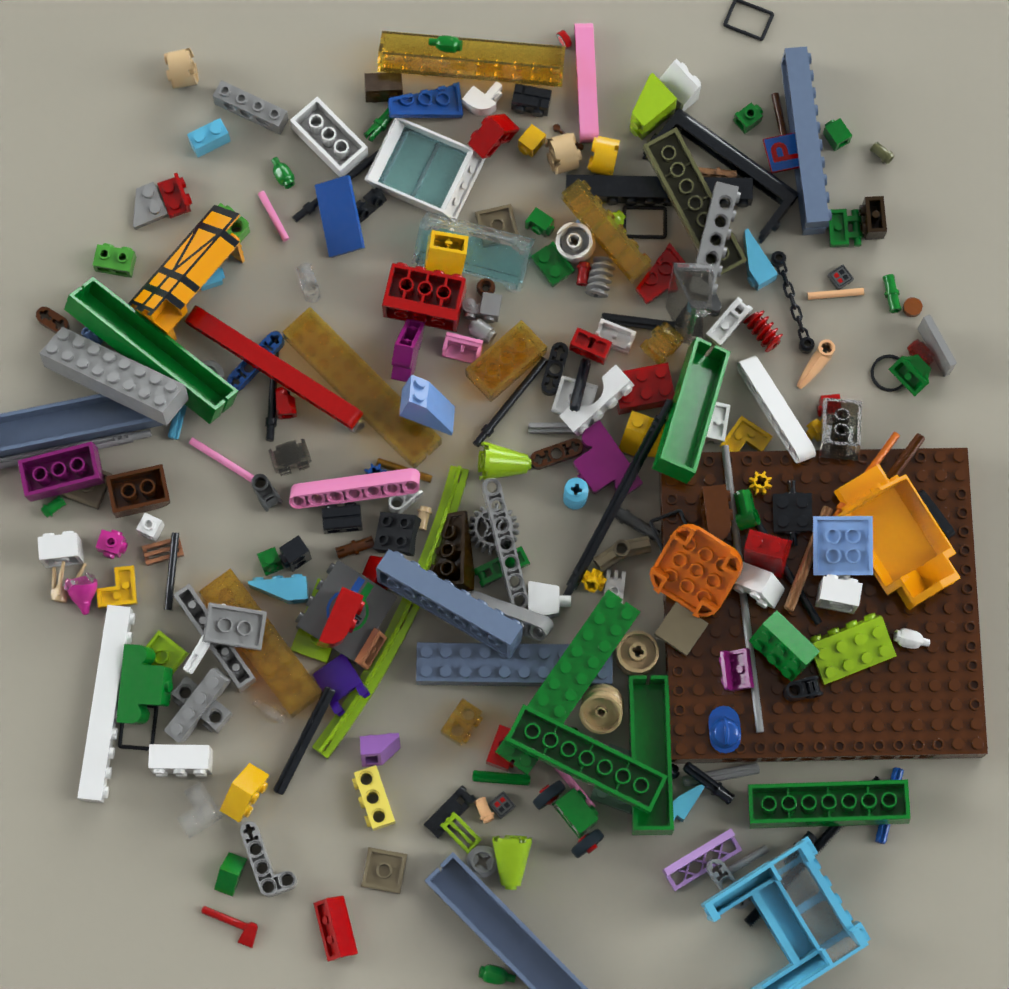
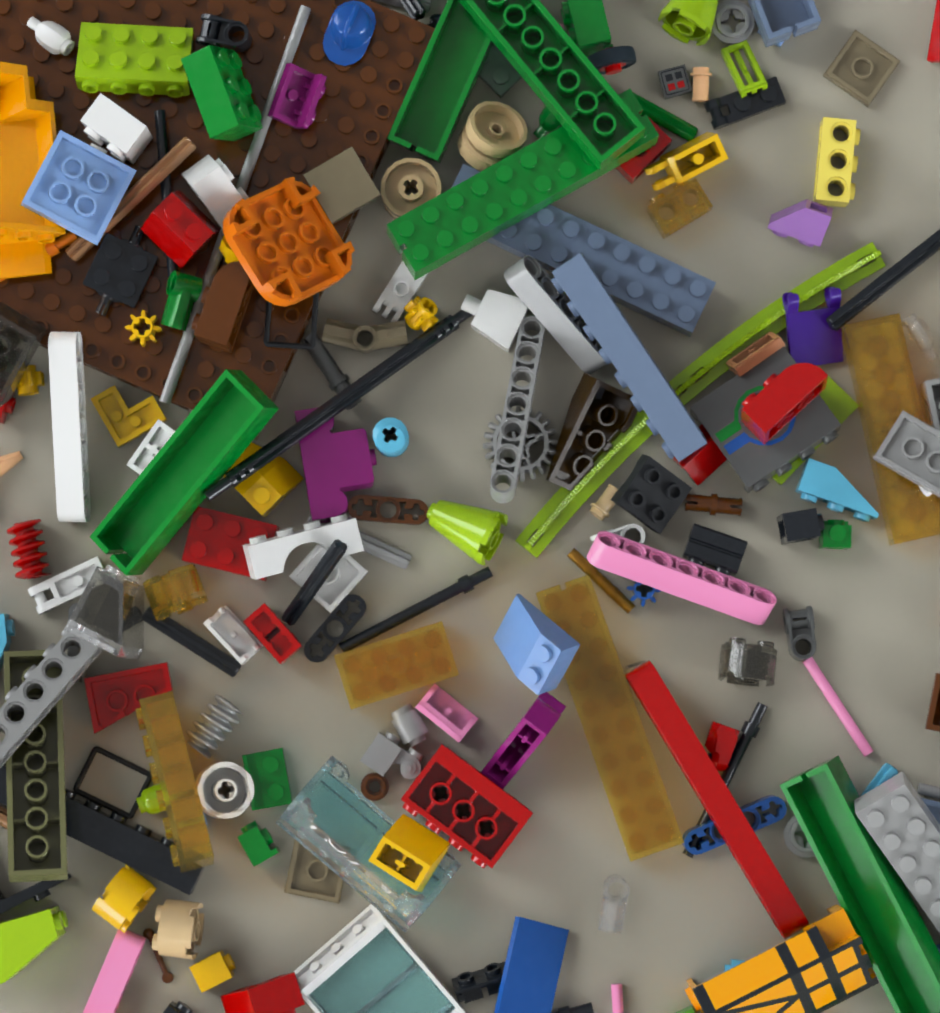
camera: 150 degrees left, 10 degrees up
(470, 753) = (688, 160): none -> yellow hinge
(495, 568) = (542, 389): green plate -> none
(583, 273) = (232, 744): red pin -> none

